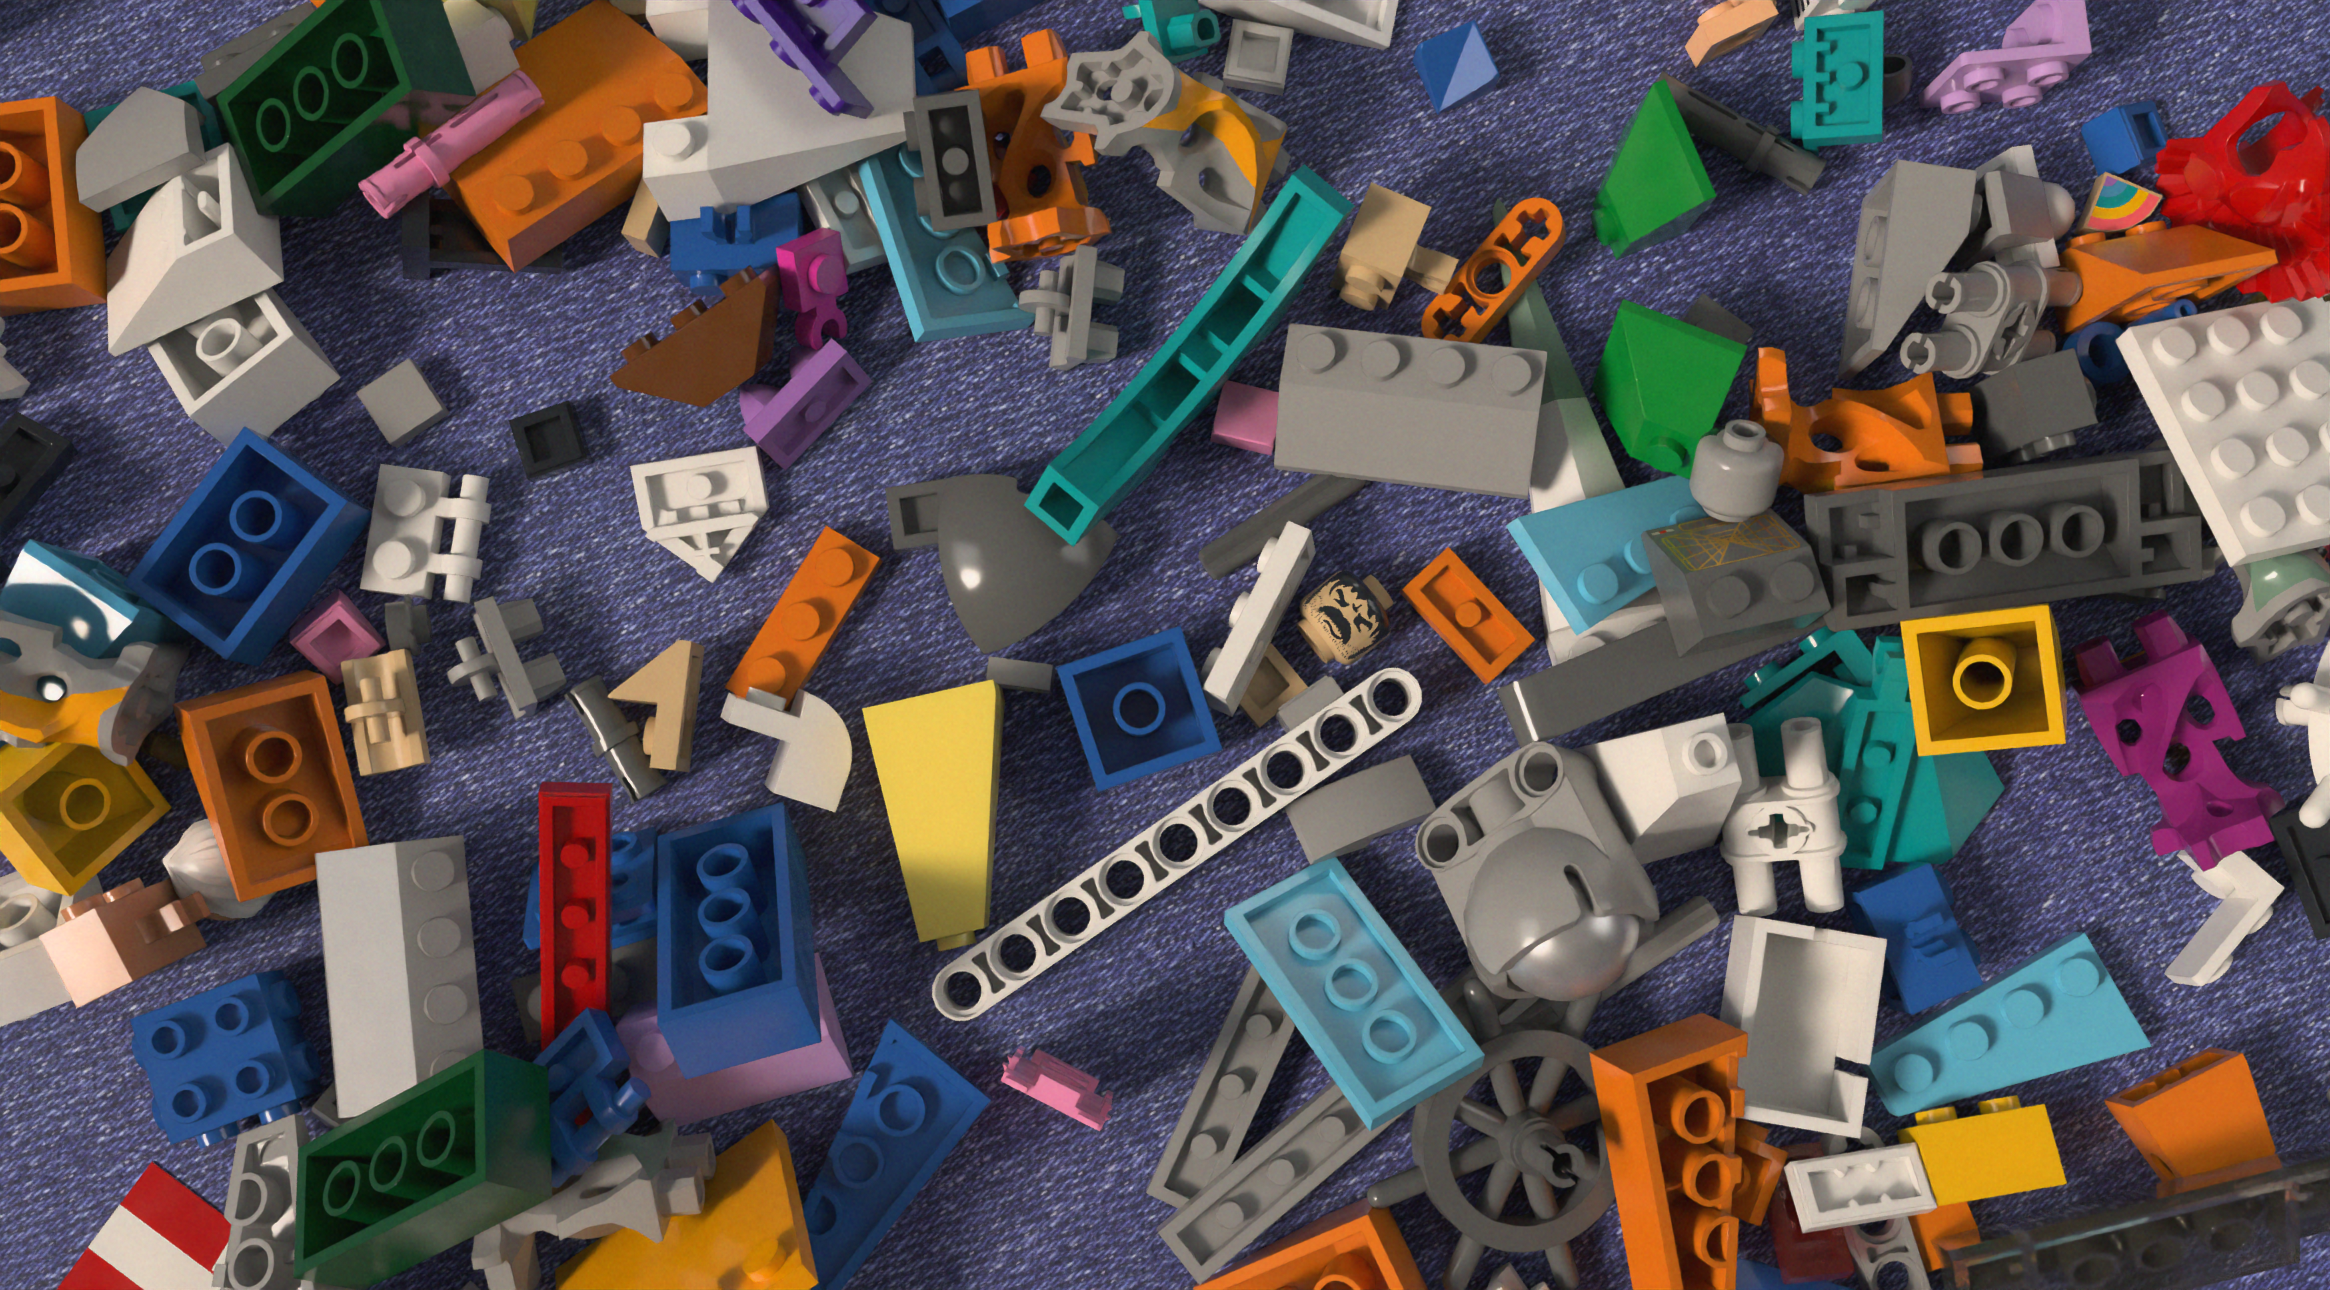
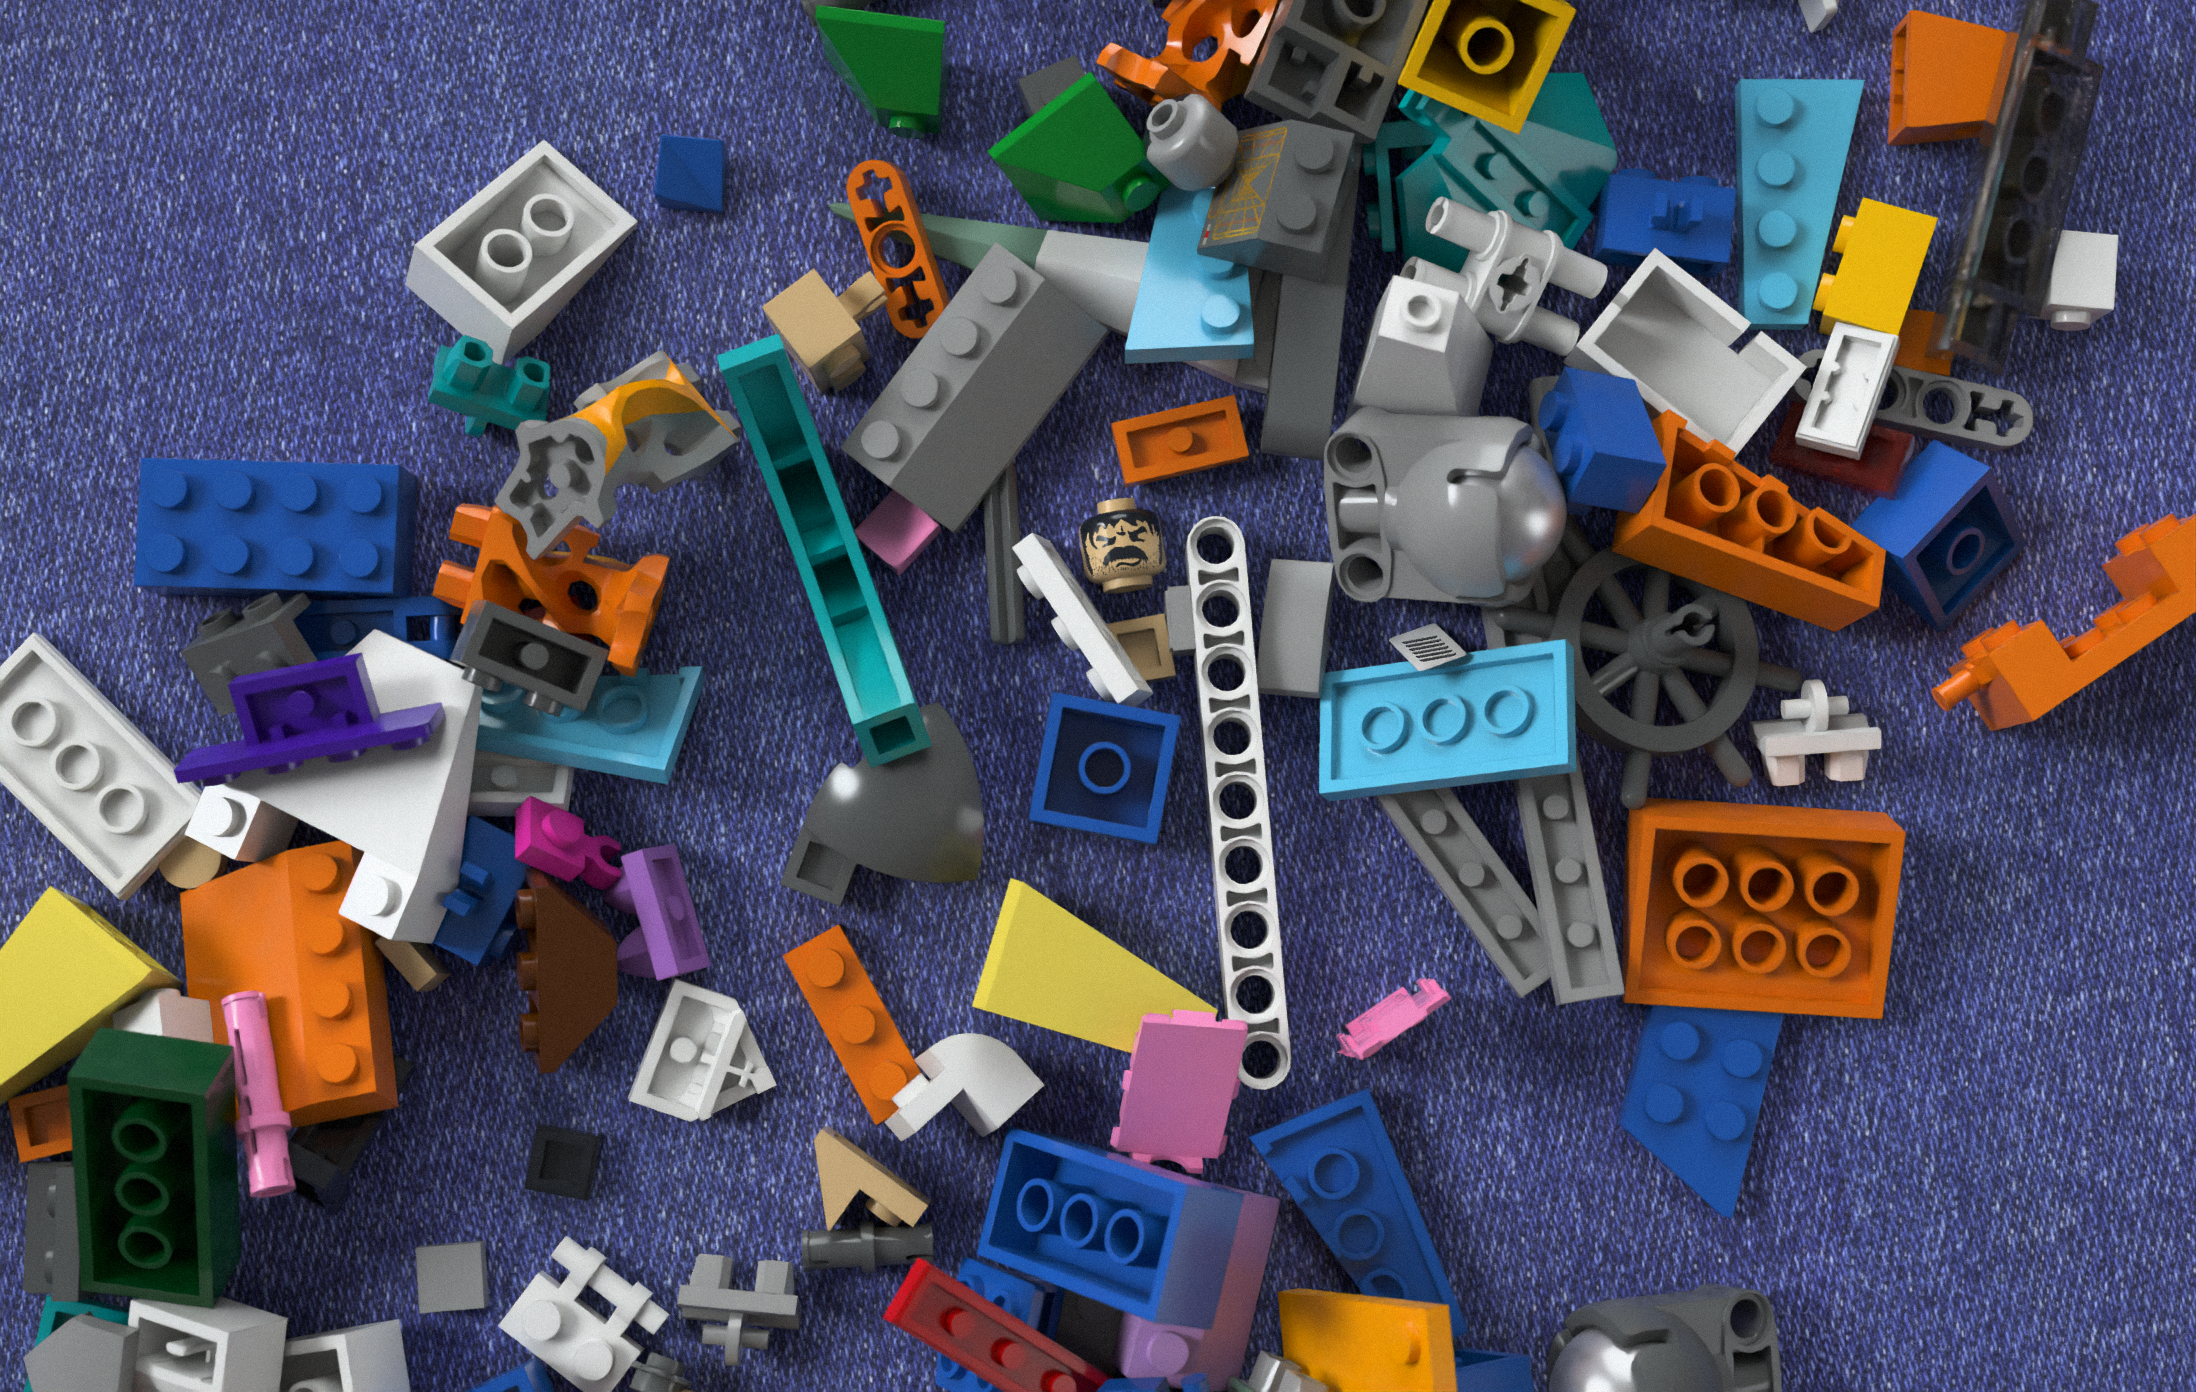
camera: 60 degrees left, 0 degrees up
(896, 933) = (1180, 1088): none -> bright pink piece
(1021, 675) = (1014, 856): light grey tile -> none
(1066, 304) = (711, 635): light grey hips -> none
(1258, 57) = (579, 340): white tile -> none
(1409, 935) = (1427, 647): none -> white sticker
(1682, 988) = (1601, 441): none -> blue brick
(1759, 1171) = (1788, 465): orange bracket -> none

